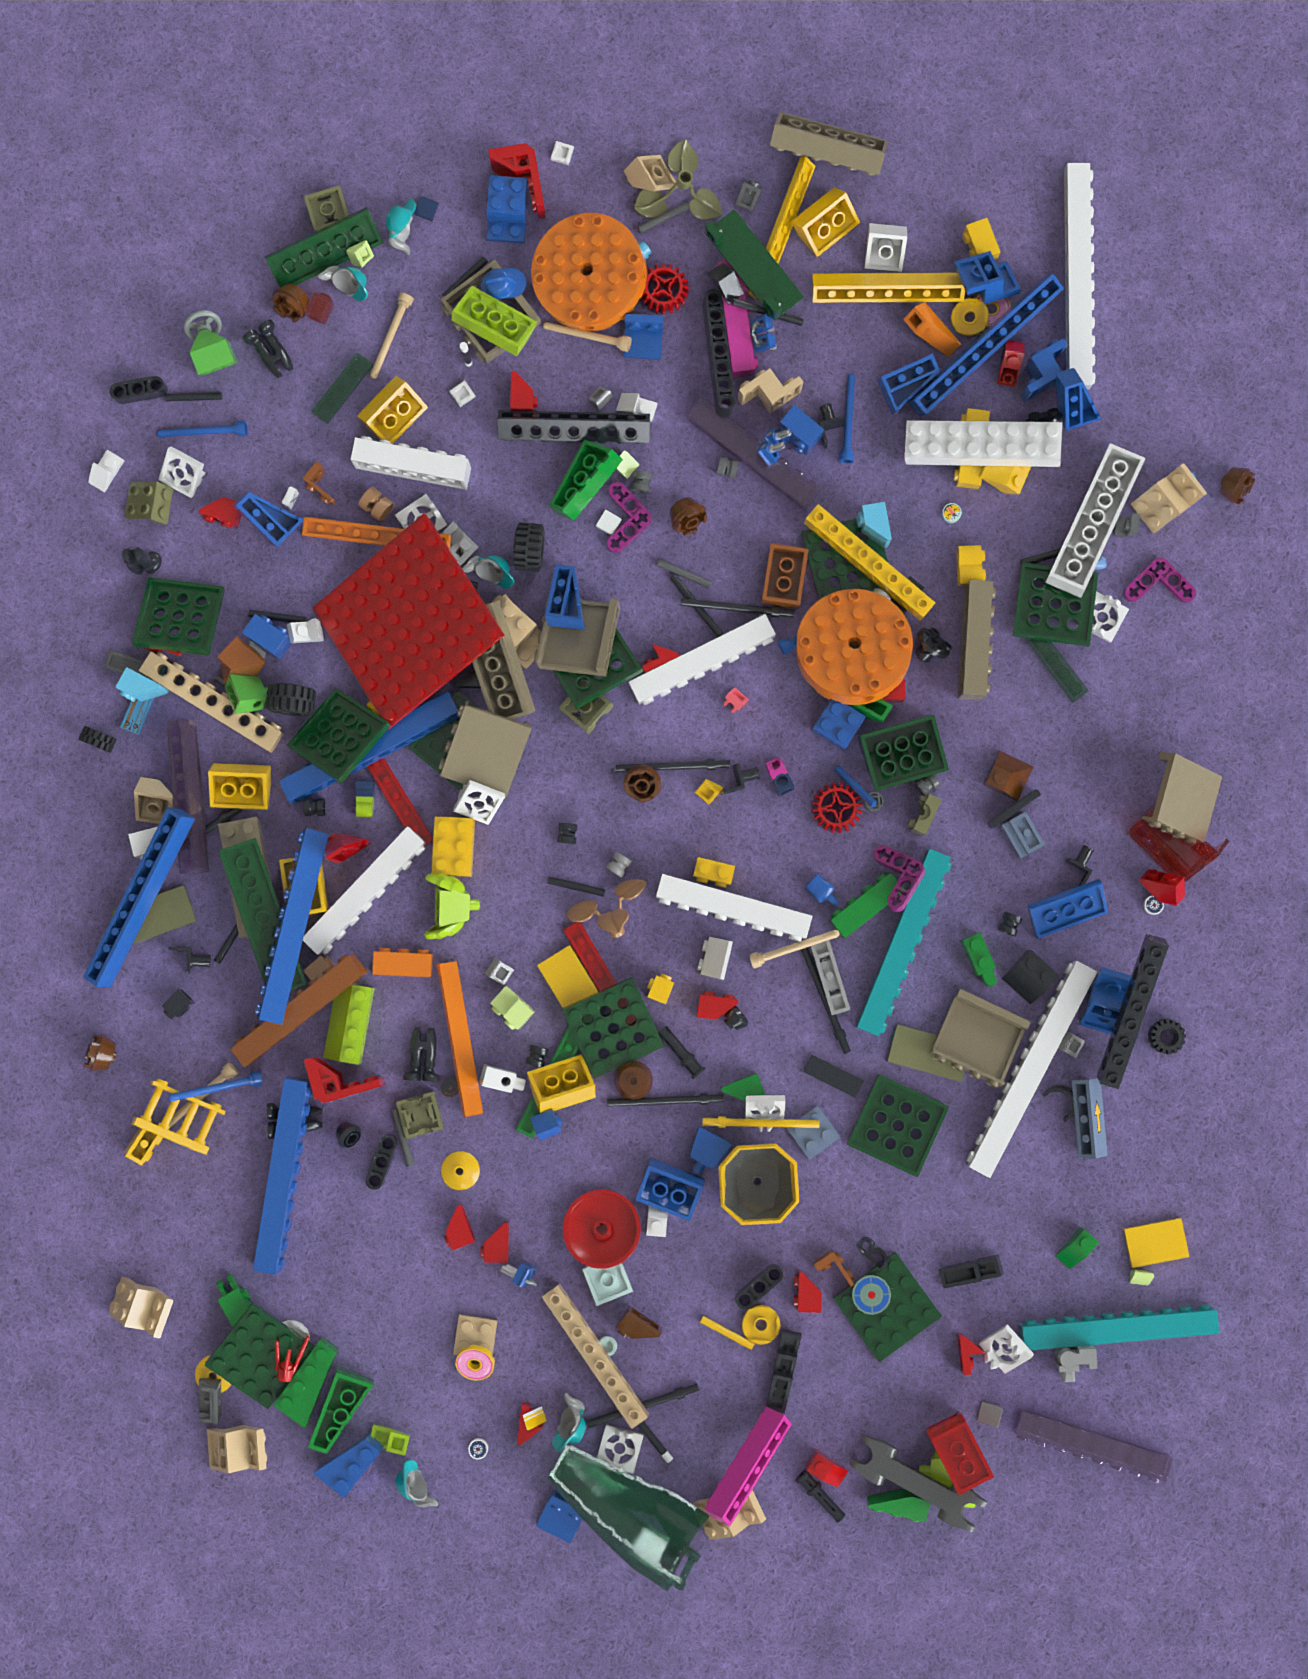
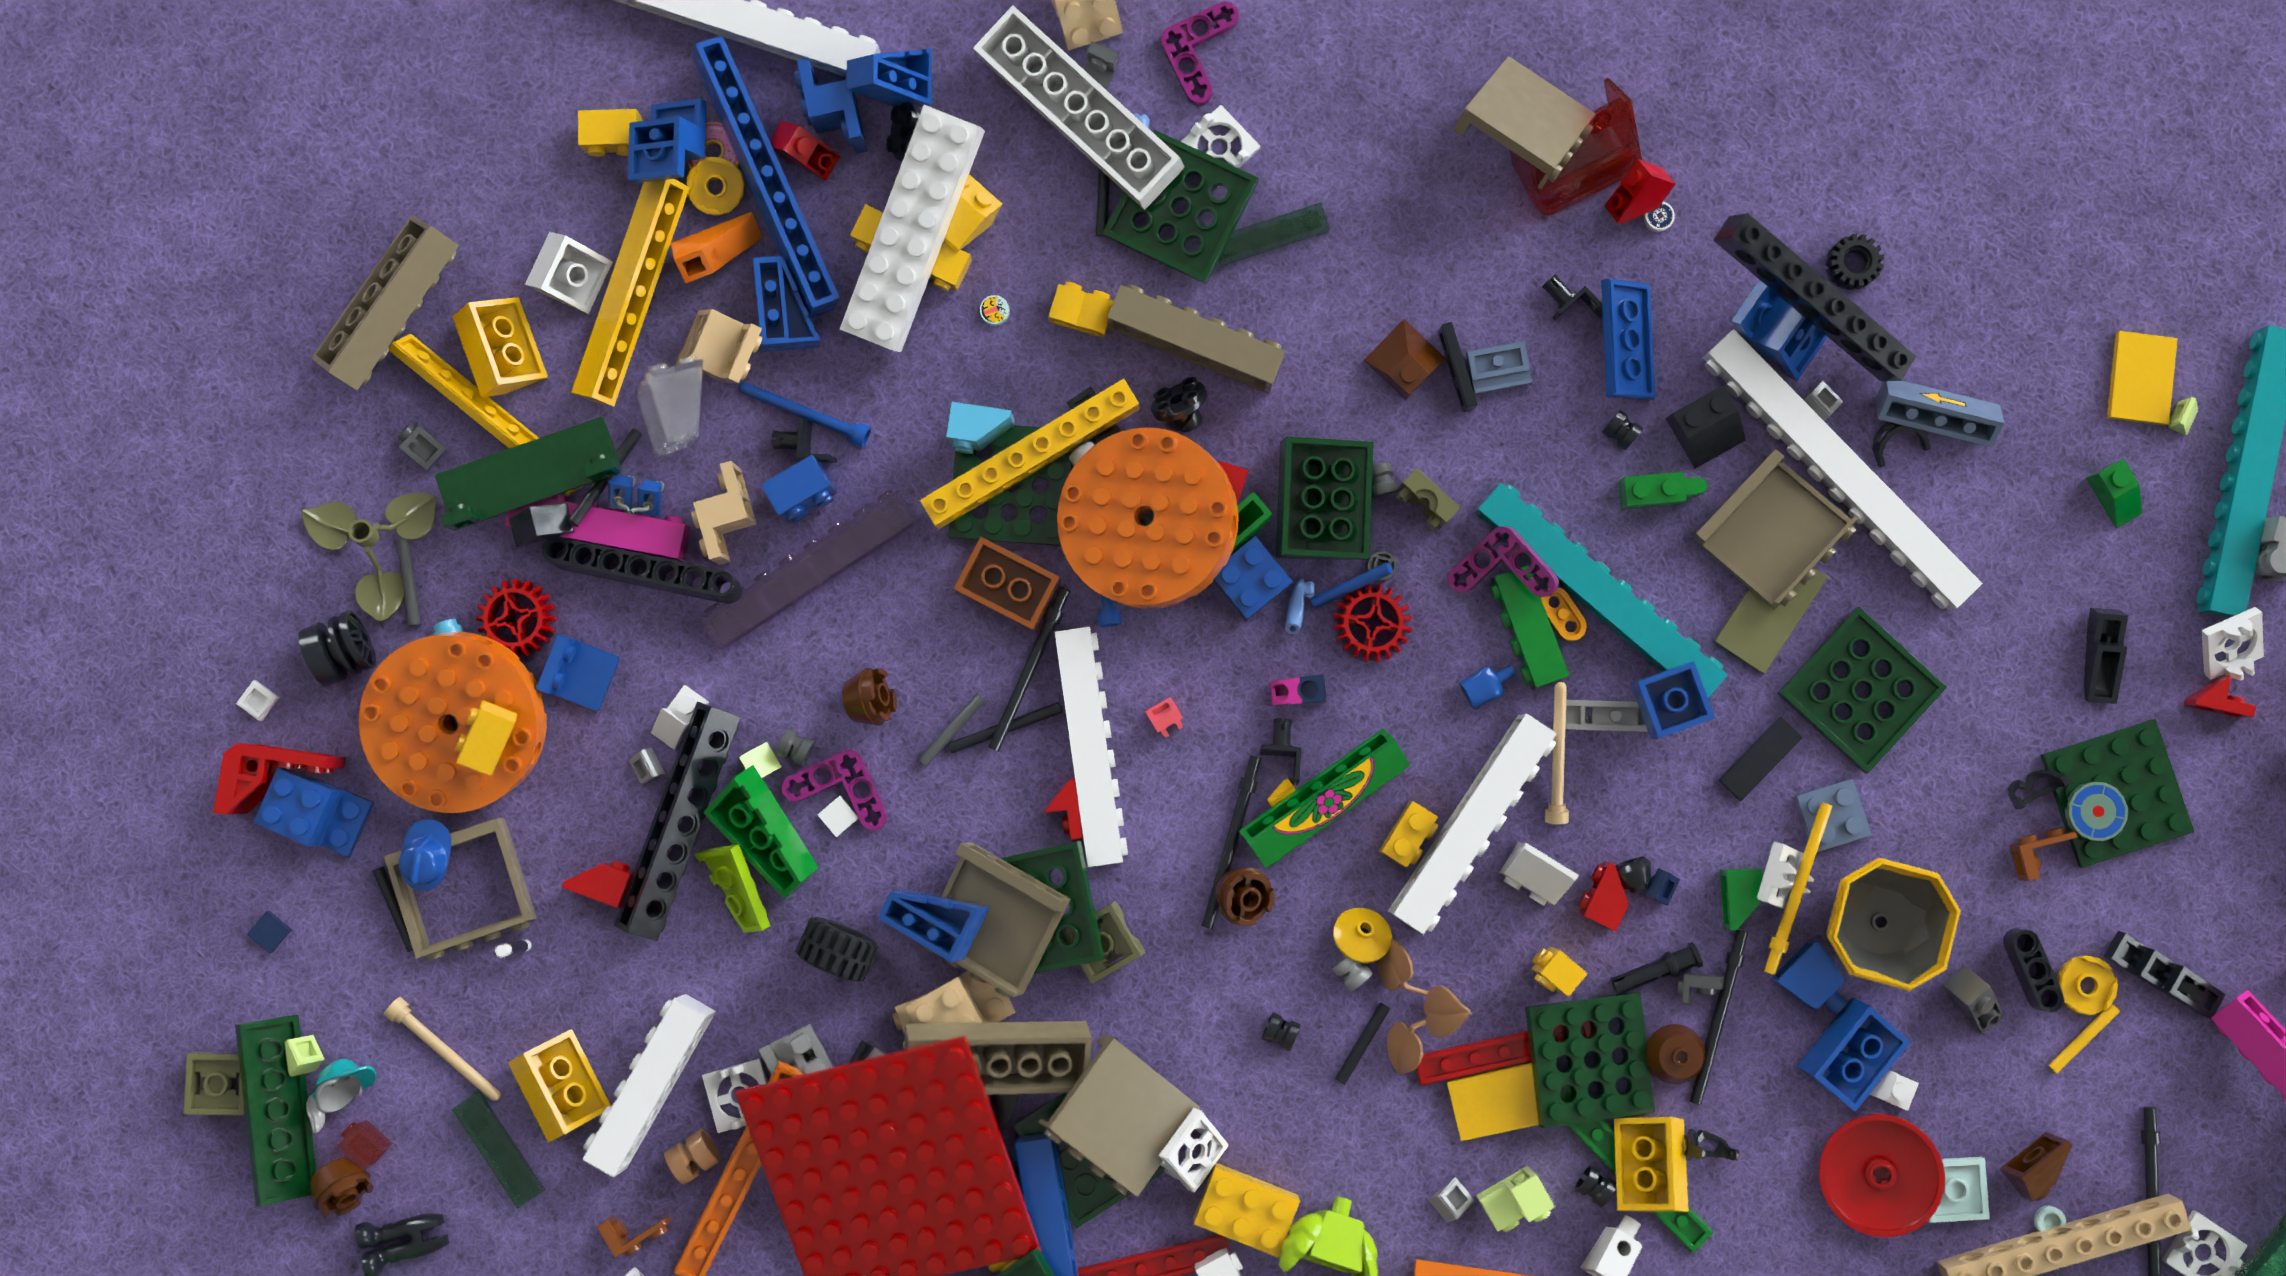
camera: 70 degrees left, 0 degrees up
(398, 225) = (278, 983): teal hair -> none
(462, 393) = (569, 970): white tile -> none
(492, 569) = (848, 1015): light grey hair -> none
(493, 320) = (476, 889): lime slope -> none
(546, 1124) = (1704, 1206): blue brick -> none
(552, 470) = (733, 876): none -> lime wing
(583, 1128) = (1722, 1150): none -> black helmet
(586, 293) = (486, 737): none -> yellow brick
(609, 188) = (337, 648): none -> black wheel
(622, 342) = (577, 706): tan piece -> none
(636, 863) = (1359, 945): none -> yellow dish
(649, 173) = (336, 581): tan slope -> none
(655, 1442) = (2214, 1194): black bar -> none
(682, 1083) = (1704, 983): none -> dark grey bracket
(718, 813) = (1325, 798): none -> green brick
(727, 467) = (816, 613): dark grey wheel -> none
(728, 1255) = (1974, 999): none -> dark grey slope
(733, 1039) = (1662, 886): none -> dark blue plate
(772, 444) = (807, 534): blue piece -> none
(808, 1294) = (2068, 901): red slope -> none
(825, 335) = (672, 405): none -> clear windscreen
(831, 758) = (1295, 609): none -> medium blue arm
(839, 1032) = (1701, 730): black bar -> none
(851, 1004) = (1672, 700): none -> blue brick
(871, 353) = (722, 345): none -> tan bracket
(882, 924) = (1563, 613): none -> light orange plate

